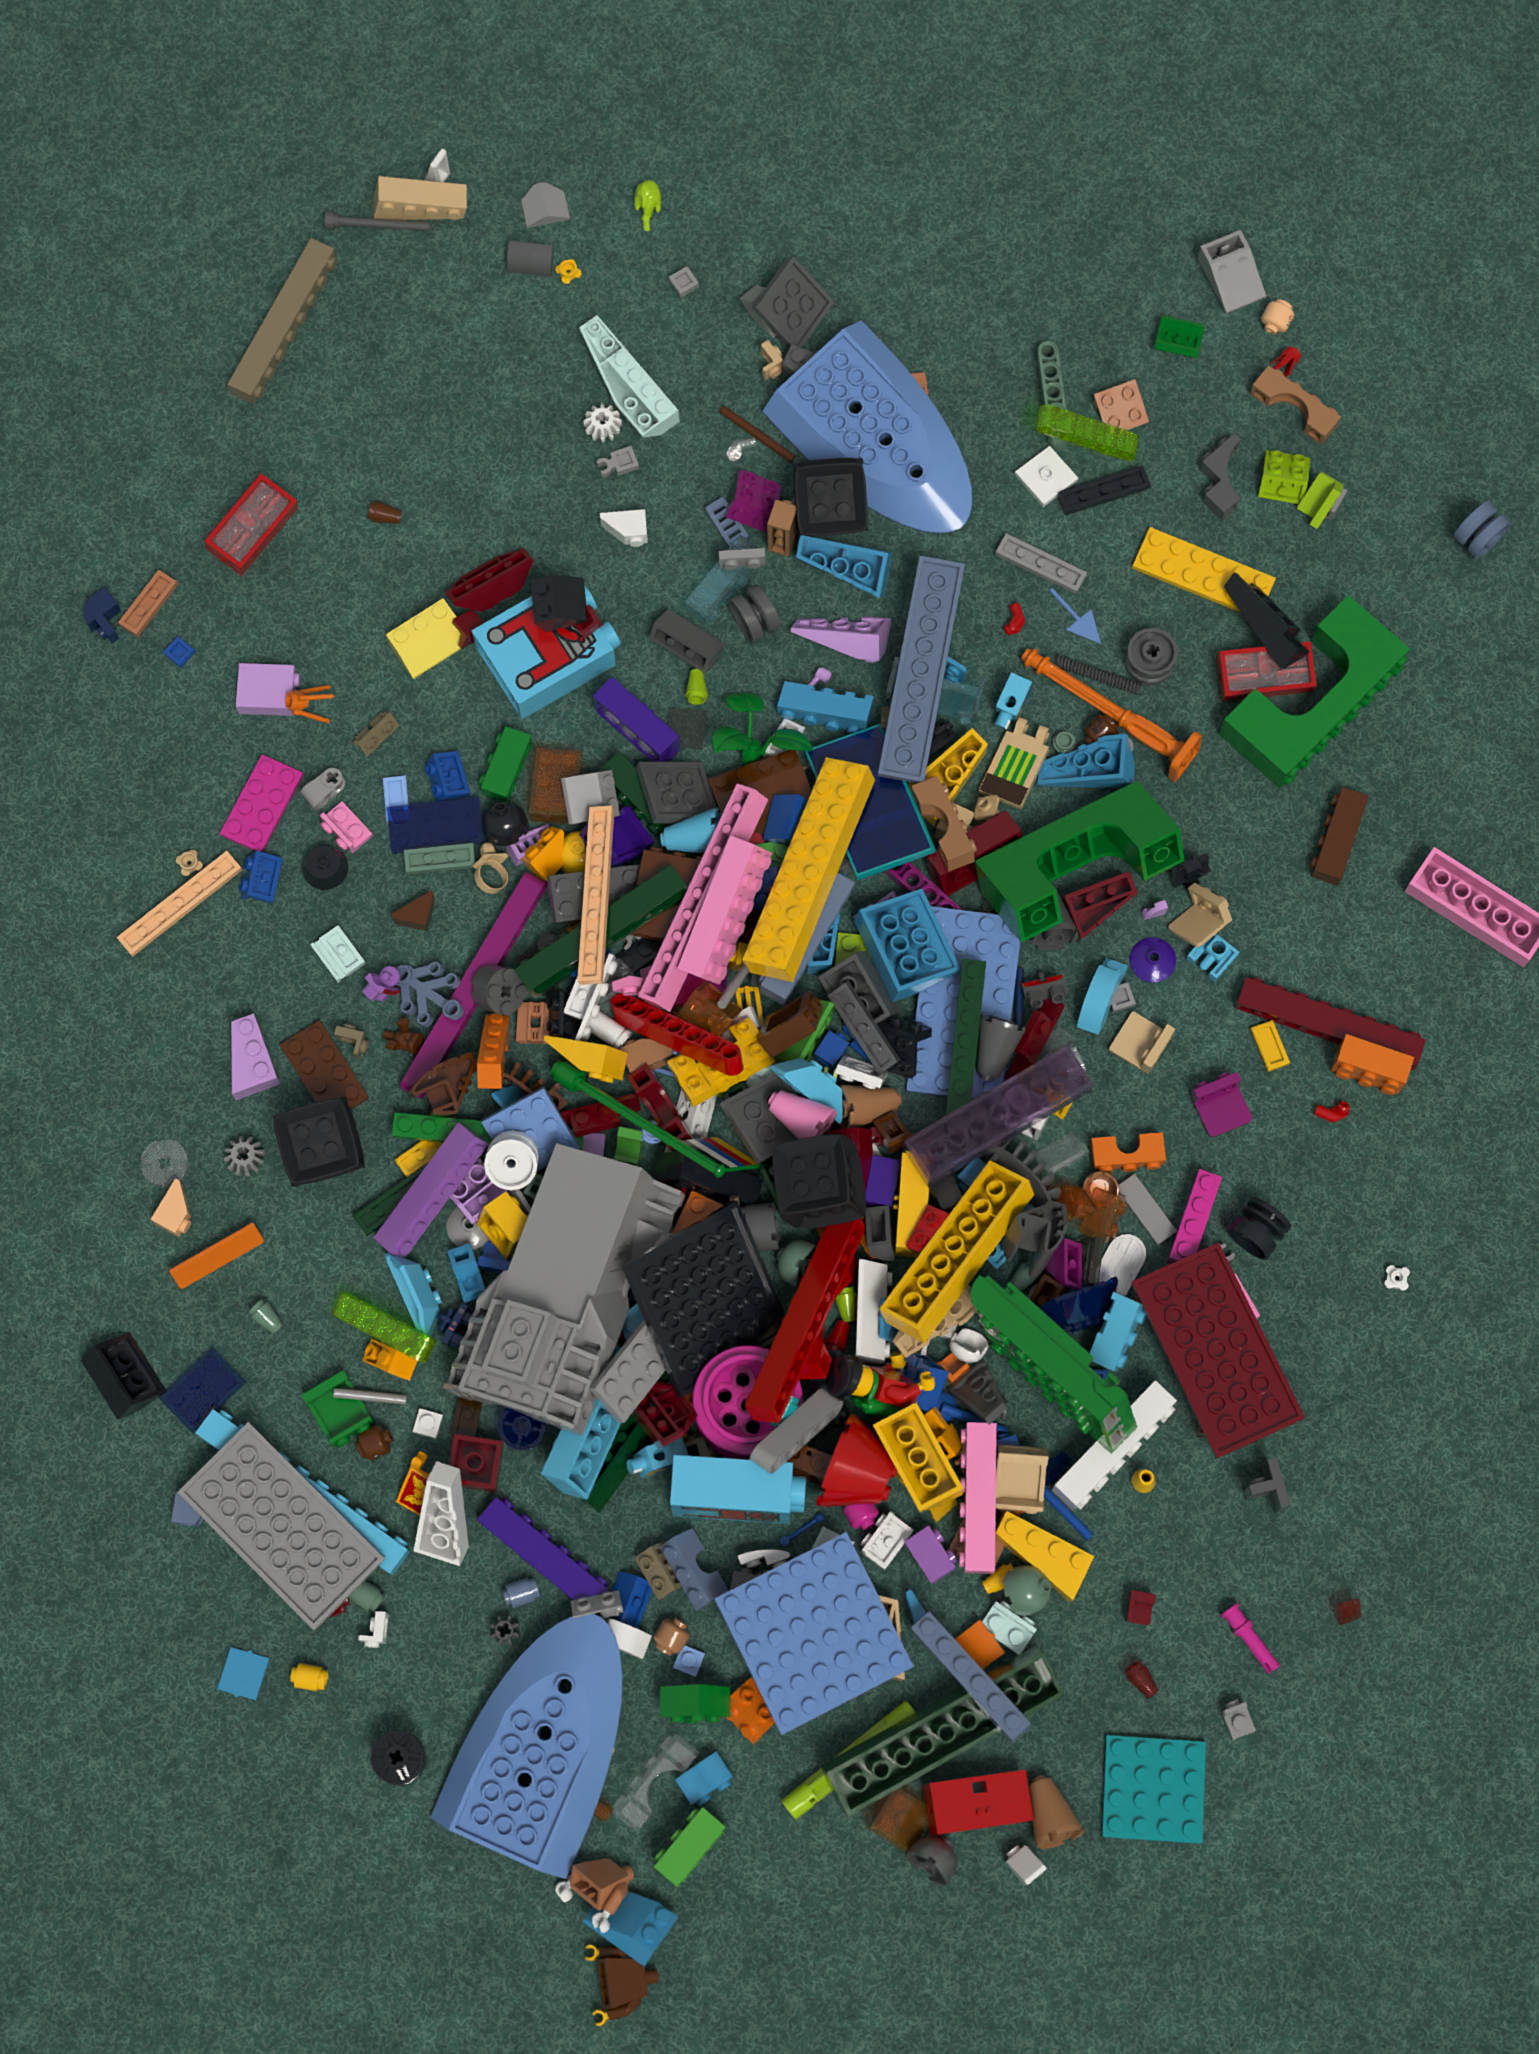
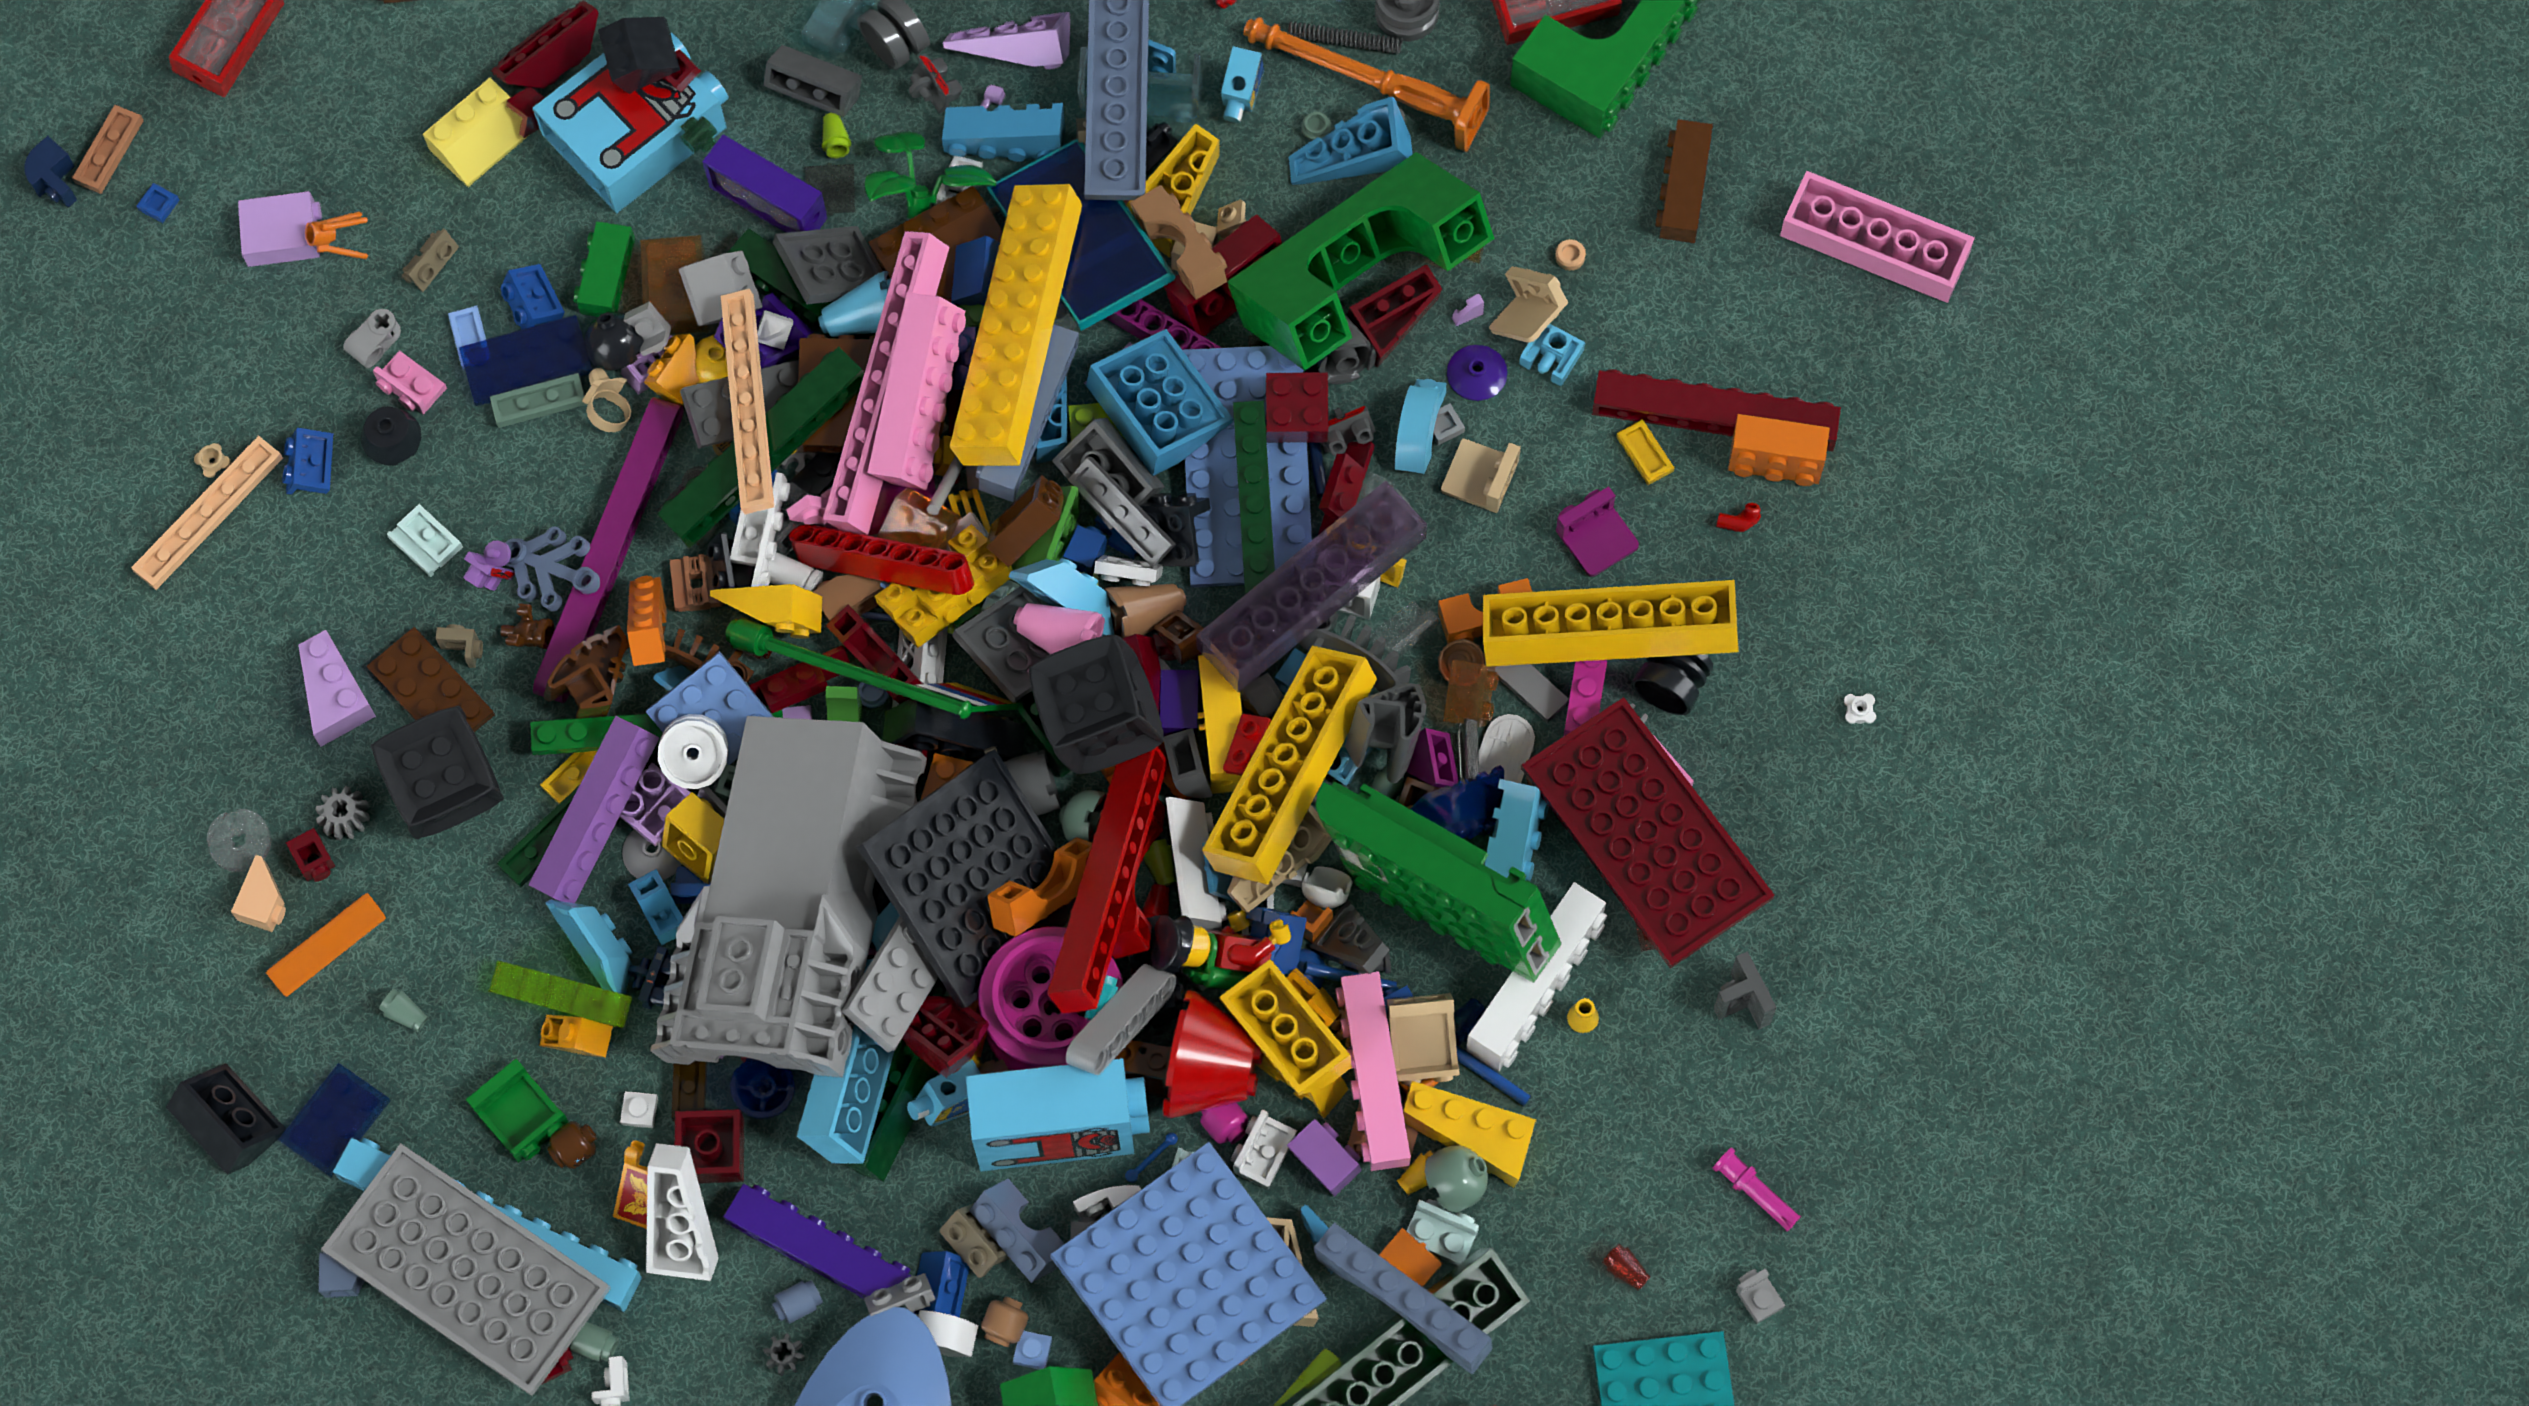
camera: 10 degrees left, 5 degrees down
(214, 1177) = (309, 846): none -> dark red brick
(261, 804) = (295, 372): dark pink plate -> none
(369, 1396) = (556, 1087): light grey bar -> none
(416, 913) = (518, 472): reddish brown slope -> none
(498, 989) = (641, 546): dark grey brick -> none
(533, 818) = (650, 326): none -> light grey bracket
(593, 673) = (698, 134): none -> clear green gear
(625, 836) = (774, 329): none -> white tile
(734, 1327) = (1019, 907): none -> orange arch
(775, 658) = (931, 86): none -> dark grey hips
(996, 1045) = (1295, 504): dark grey cone -> none
(1010, 969) = (1297, 407): none -> dark red brick
(1016, 765) = (1260, 162): tile -> none
(1076, 1201) = (1434, 681): clear orange slope -> none
(1100, 727) = (1356, 97): reddish brown head -> none
(1140, 1607) = (1607, 1176): dark red panel -> none
(1190, 871) = (1504, 252): black piece -> none
(1218, 1184) = (1610, 623): none -> yellow brick
(1240, 878) = (1570, 254): none -> light nougat tile
(1347, 1611) = (1875, 1133): clear red slope -> none

